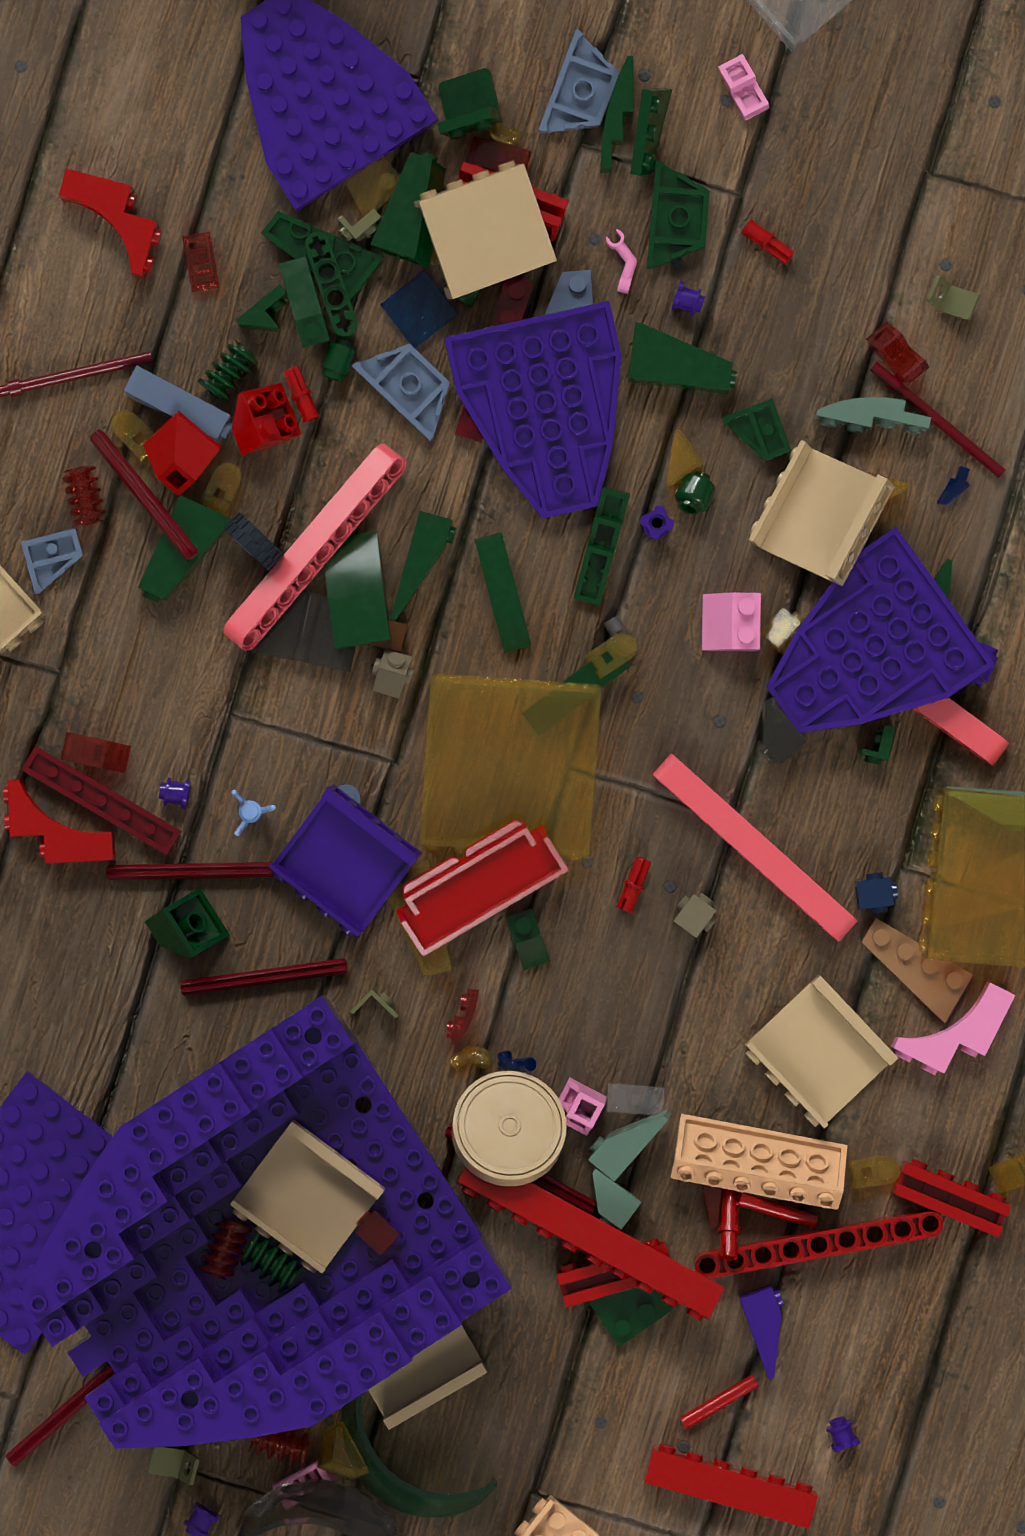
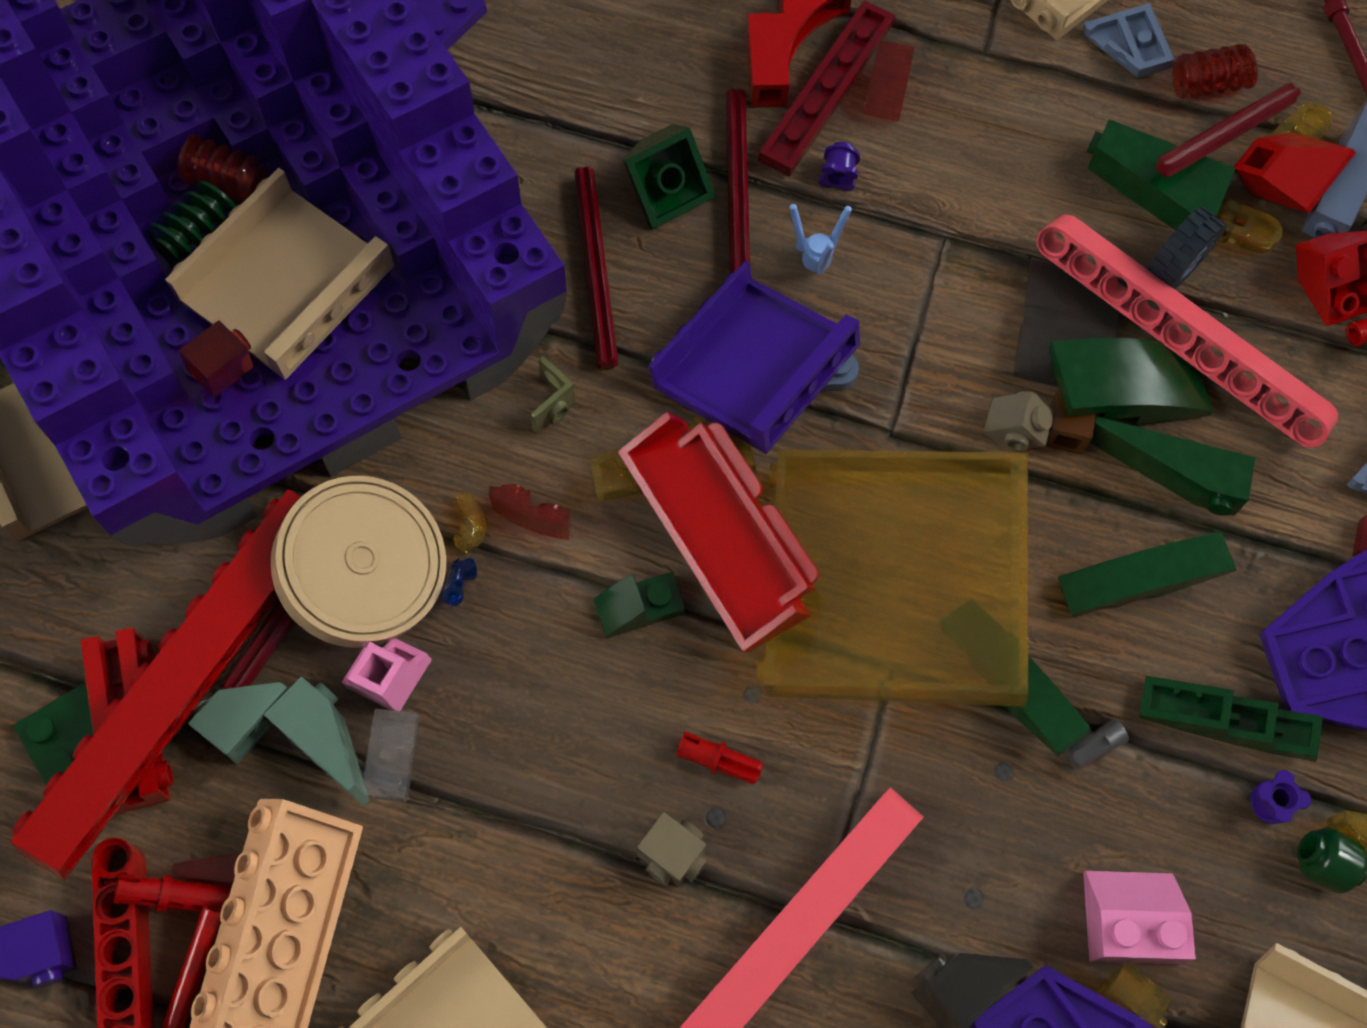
camera: 85 degrees right, 20 degrees down
(620, 648) = (1086, 735): clear yellow plate -> none

